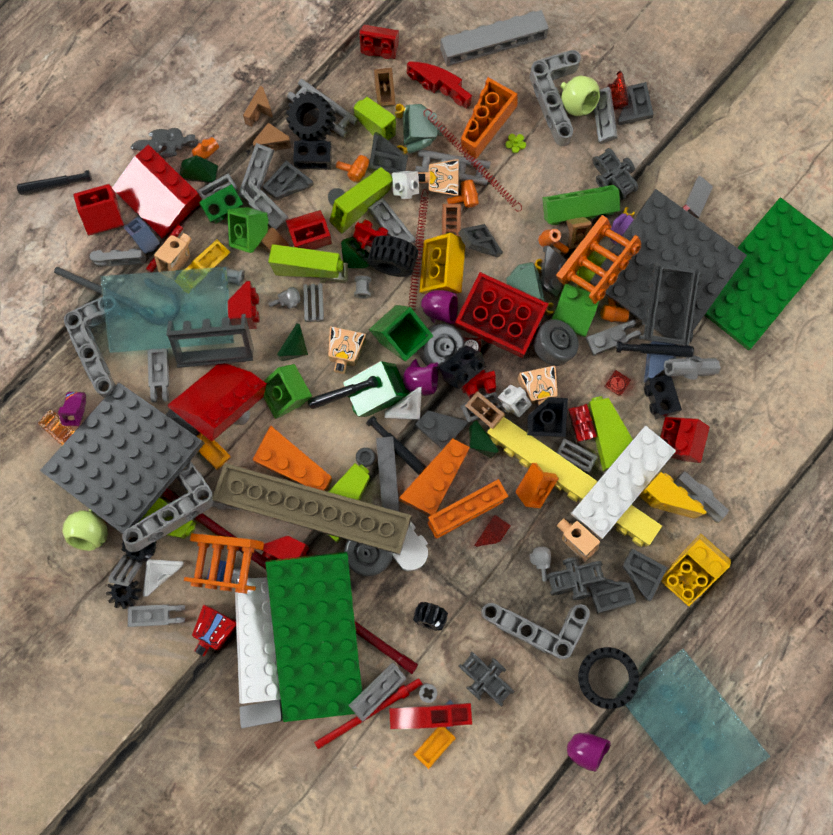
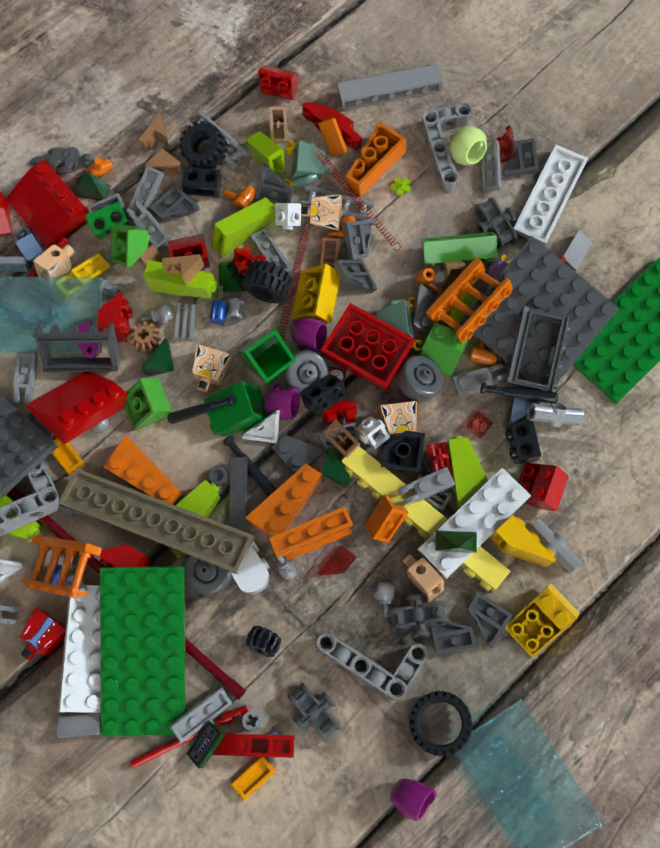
camera: 10 degrees right, 5 degrees down
(220, 342) = (88, 349): none -> magenta leg
(268, 321) = (144, 337): none -> medium nougat gear
(314, 247) = (187, 265): none -> medium nougat slope
(346, 291) = (218, 312): none -> blue piece
(386, 719) = (206, 744): none -> tile
(442, 97) = (333, 137): none -> orange slope
(444, 543) = (286, 568): none -> light grey piece
(479, 202) = (358, 238): none -> dark grey wing
(575, 449) = (428, 486): none -> light grey hinge
(608, 502) = (456, 541): none -> dark green slope
(667, 140) = (550, 194): none -> white plate

